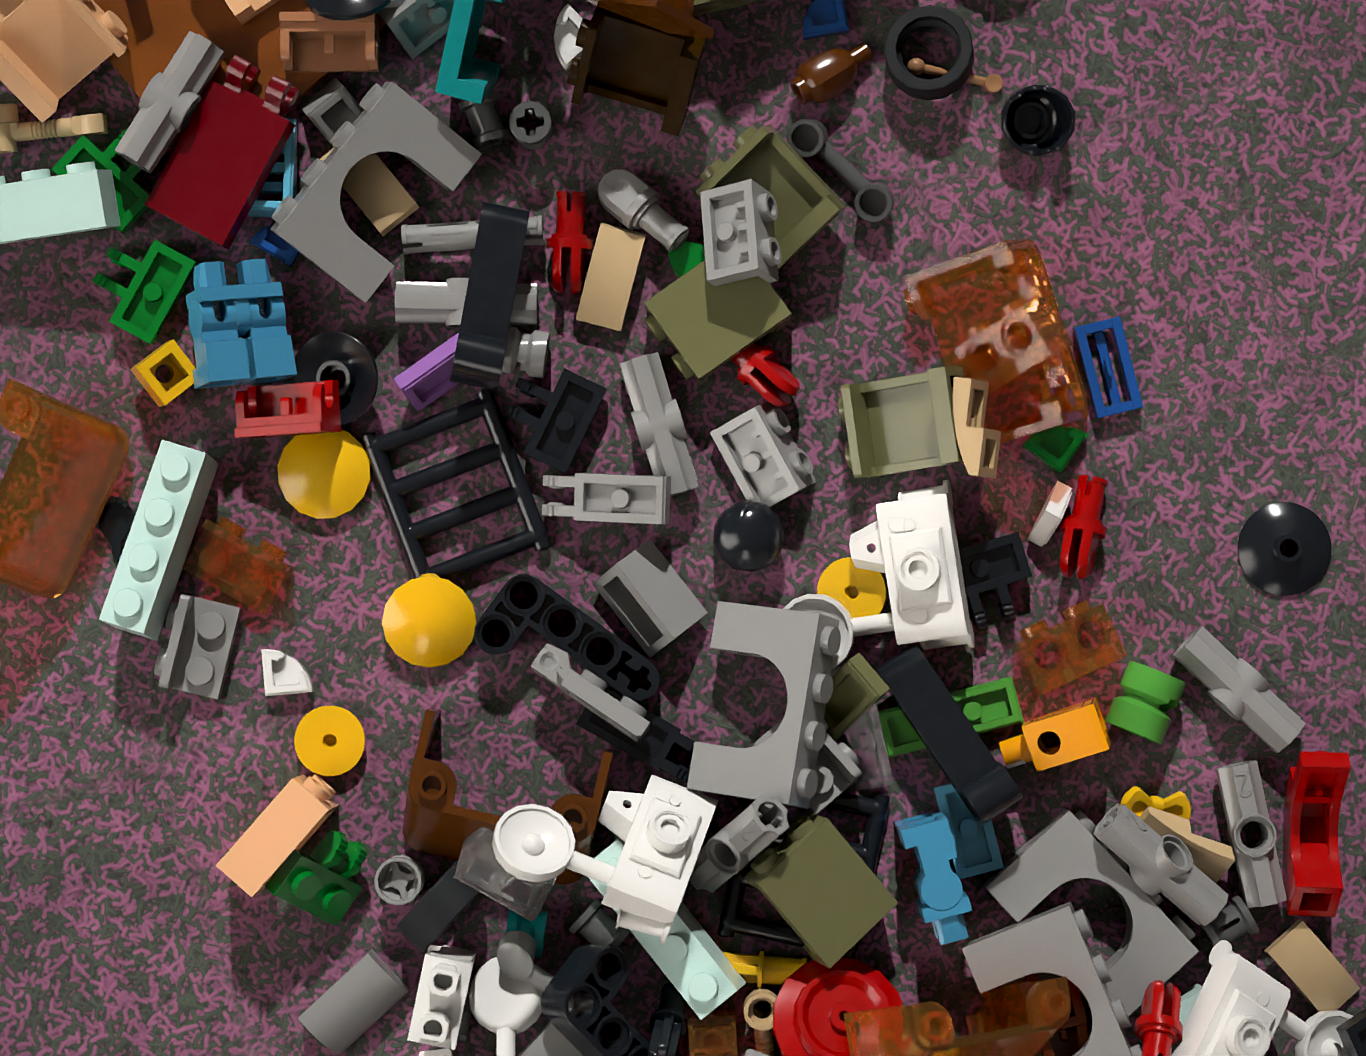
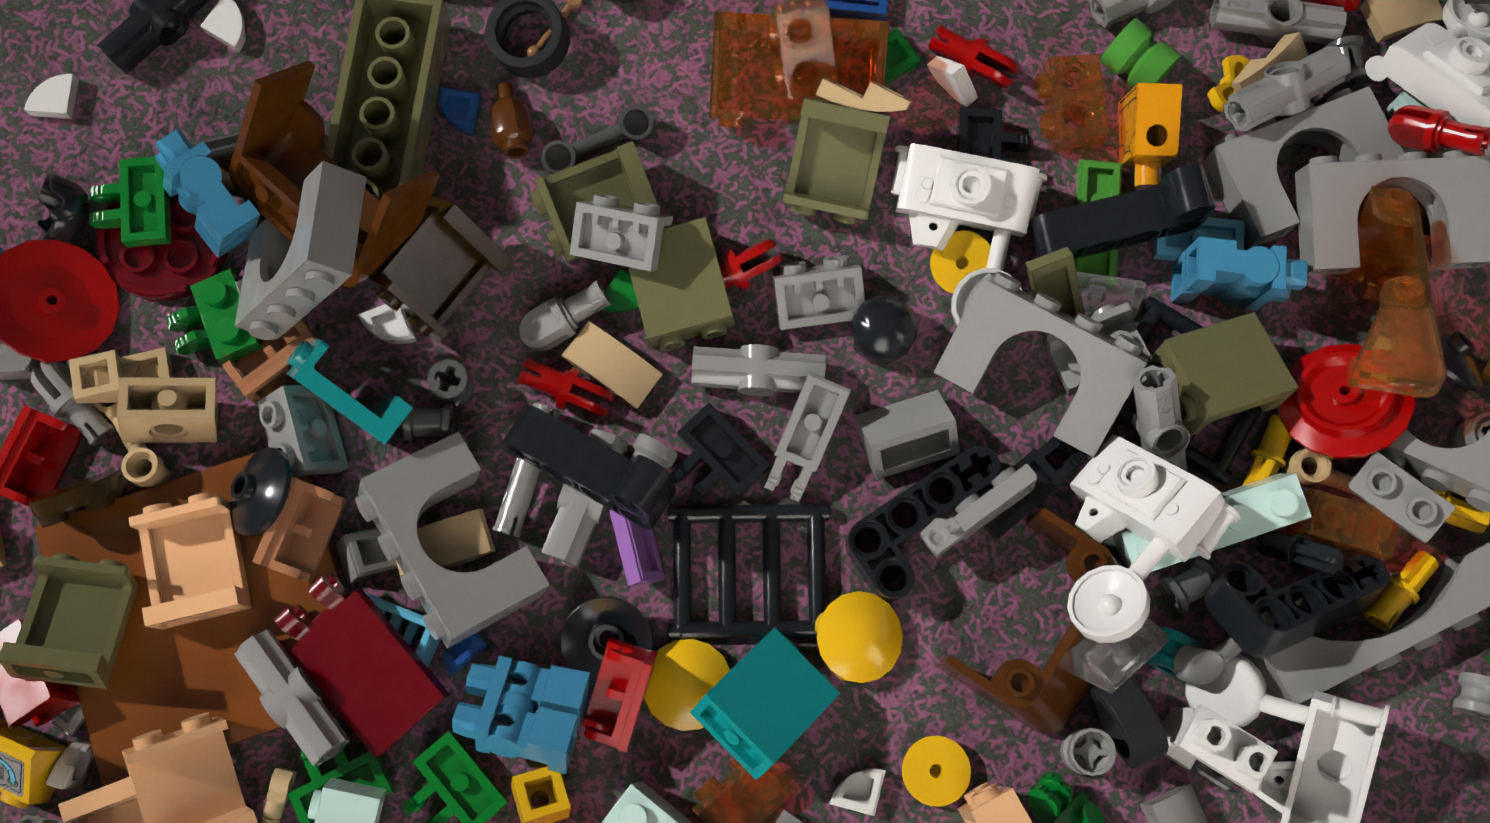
camera: 70 degrees left, 10 degrees down
(329, 553) = (765, 703): none -> teal panel

